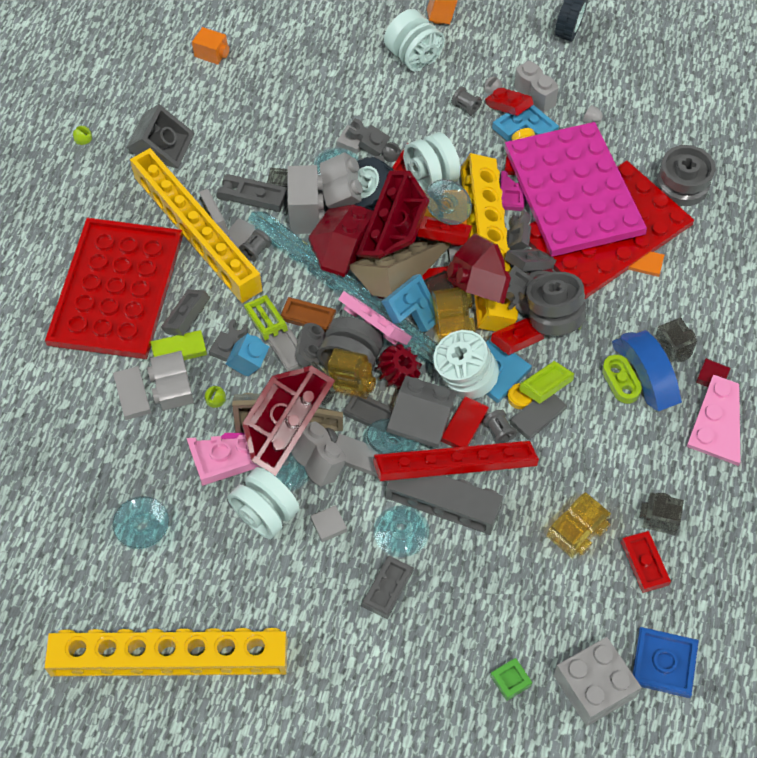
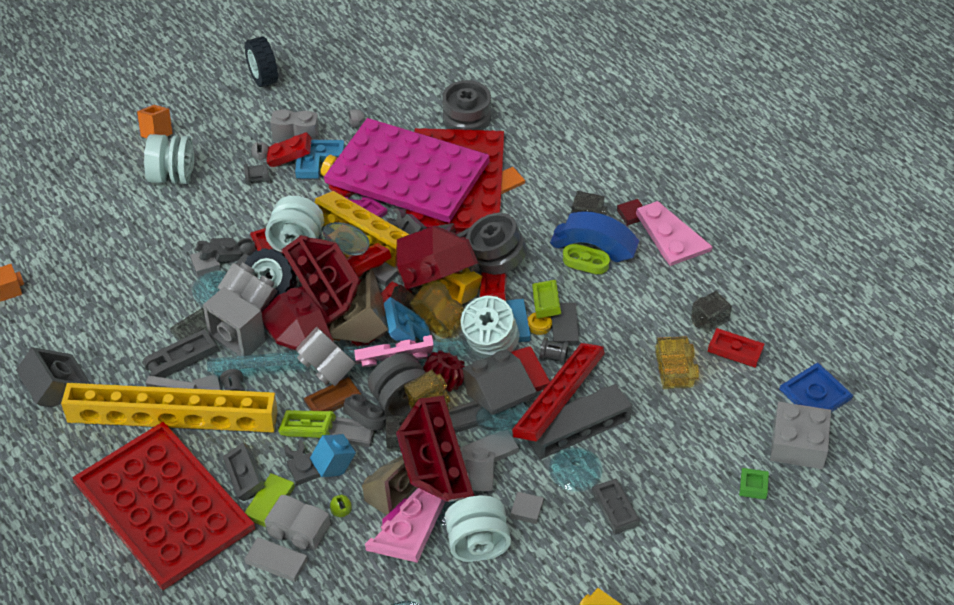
camera: 50 degrees left, 10 degrees down
(324, 277) = (325, 357): none -> light grey brick

